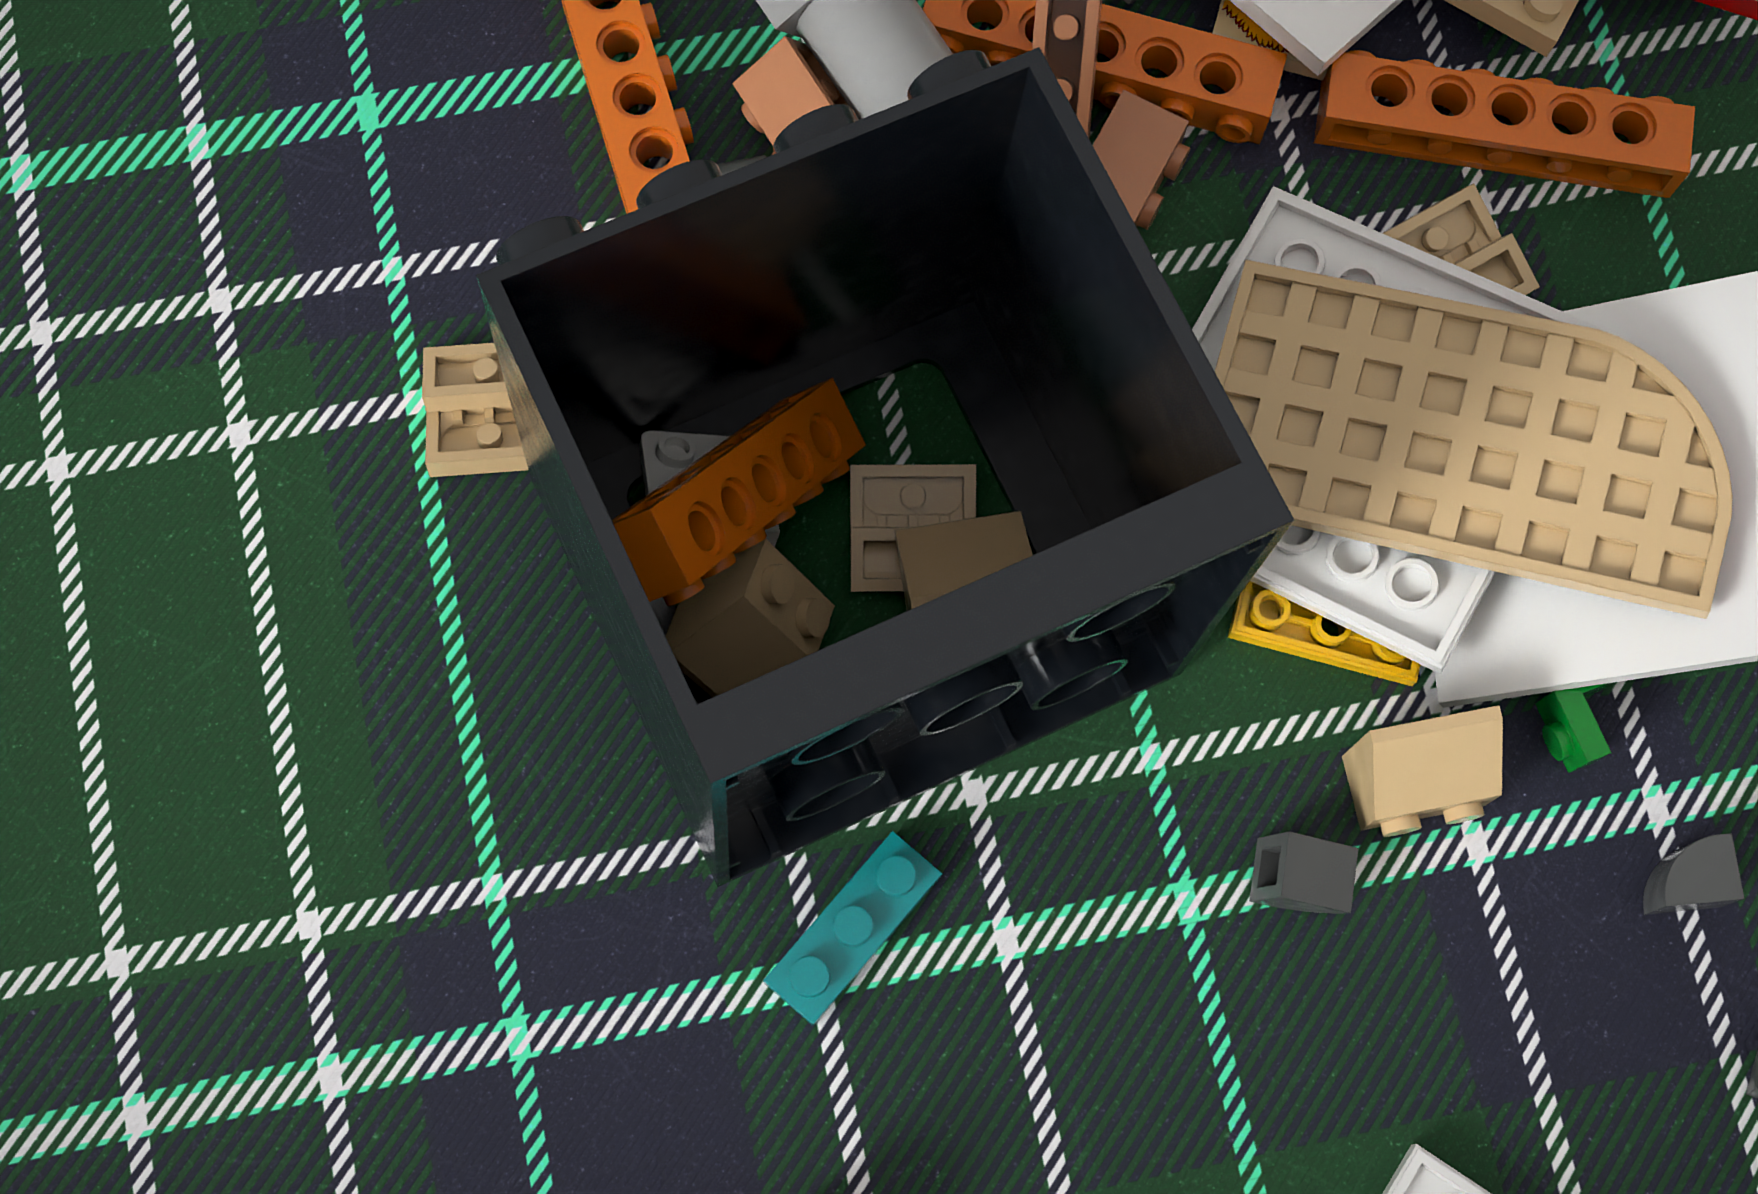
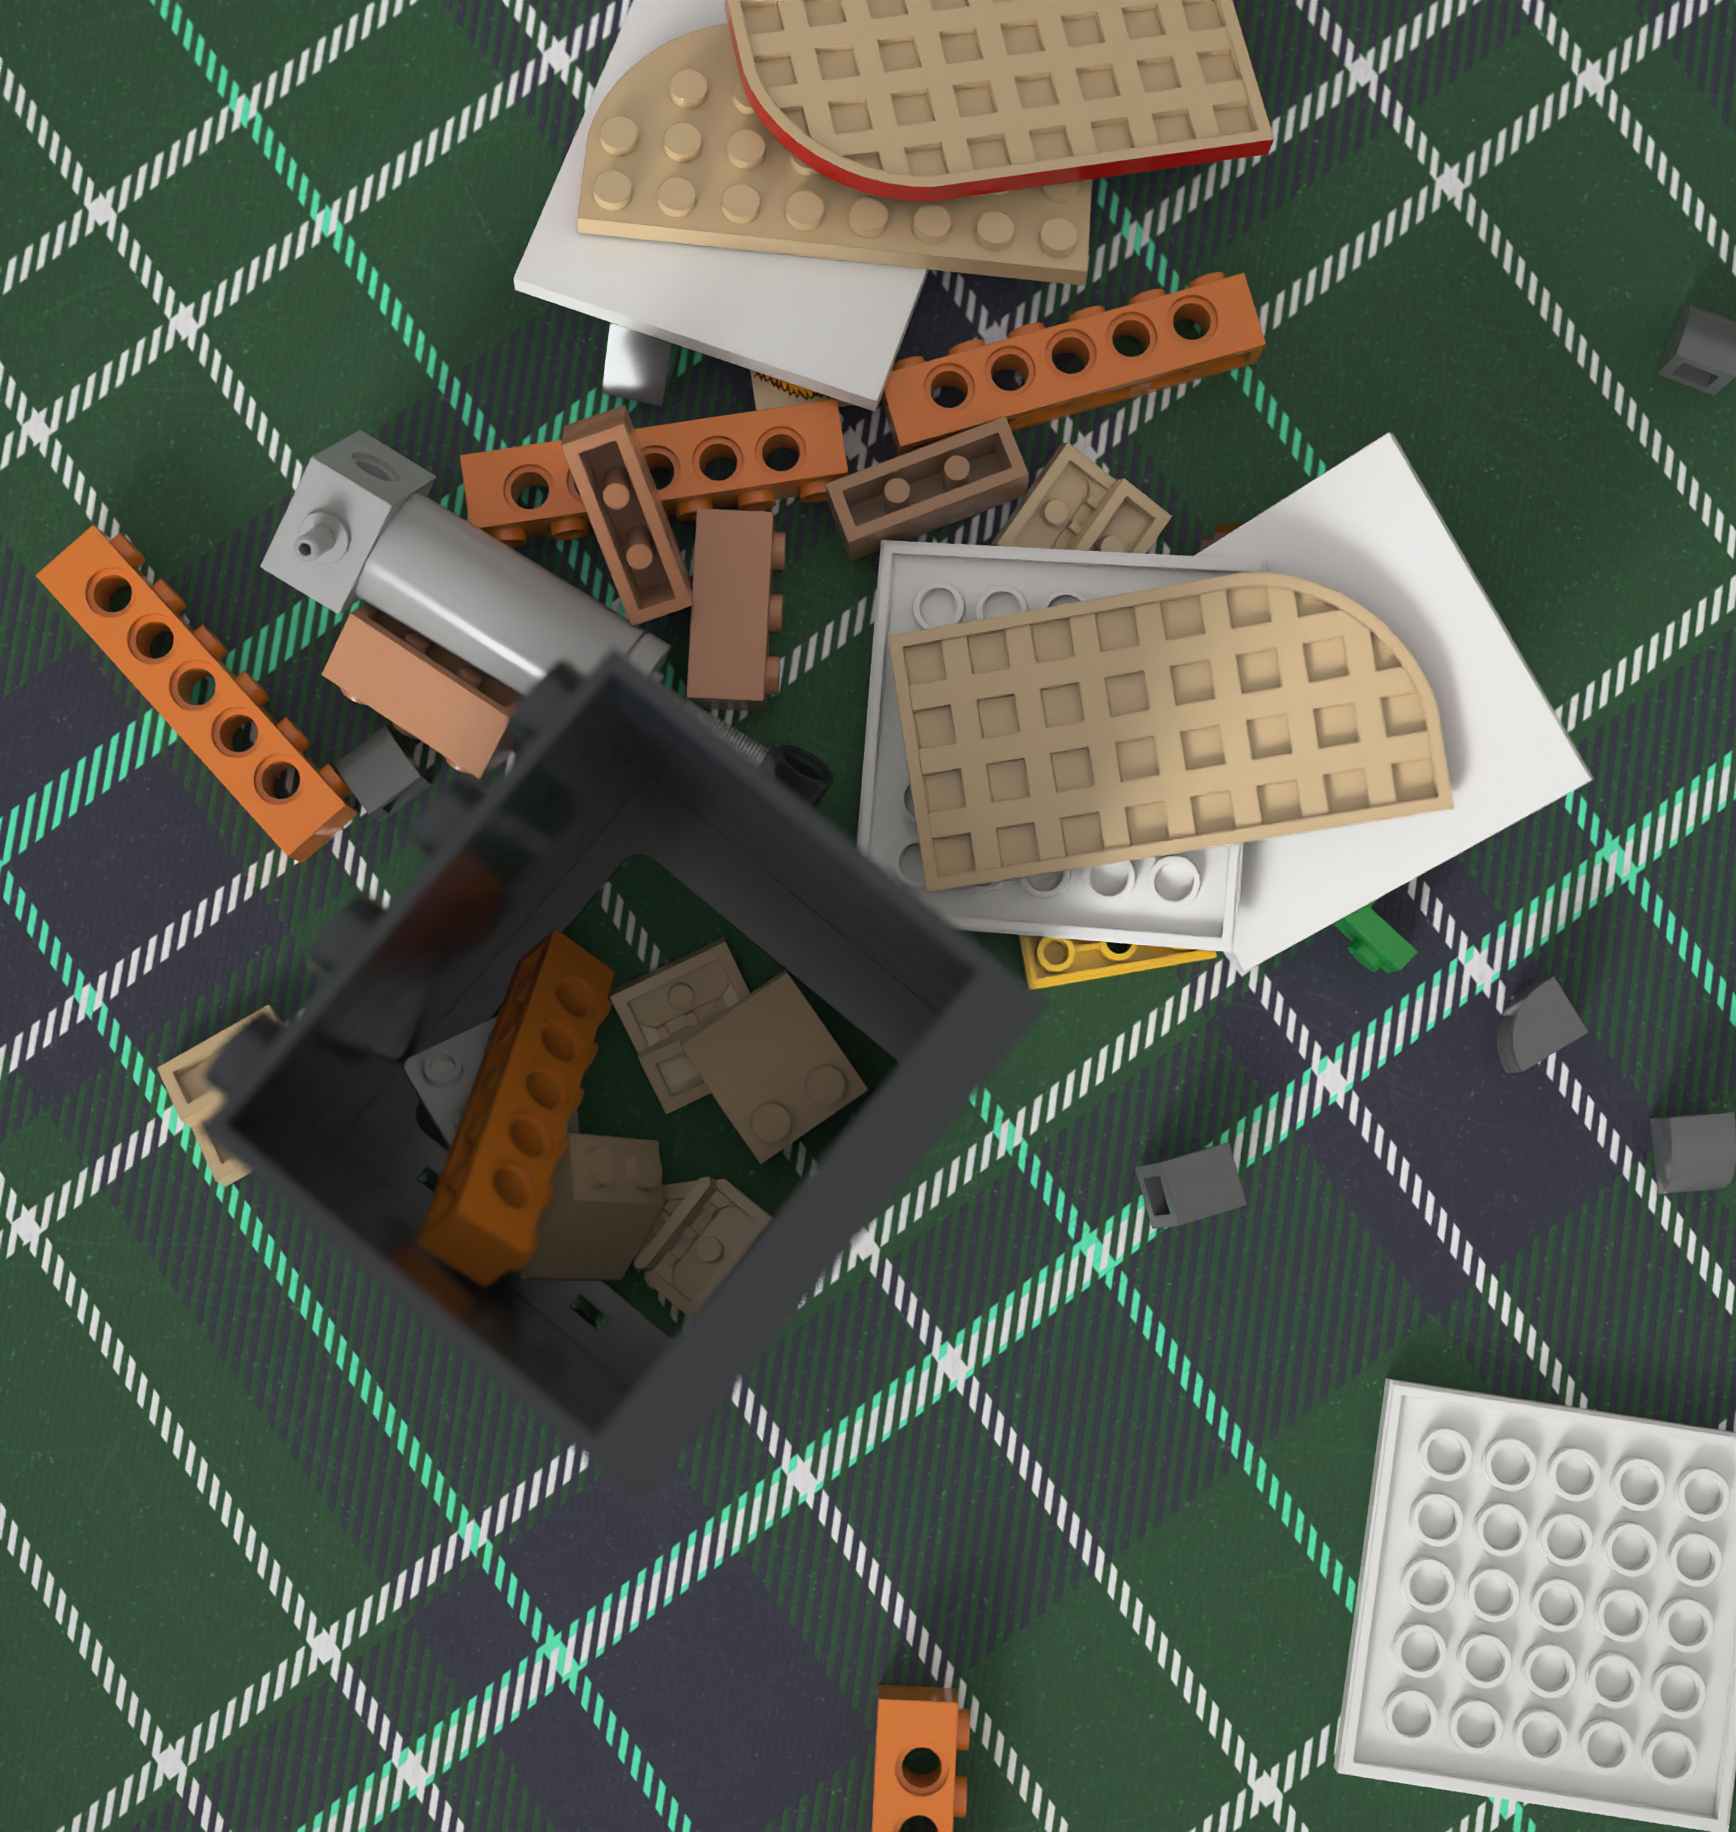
camera: 20 degrees left, 10 degrees up
(852, 928) = (811, 1422): teal plate -> none
(1334, 162) = (927, 488): none -> medium nougat brick
(1427, 771) = (1261, 1044): tan slope -> none

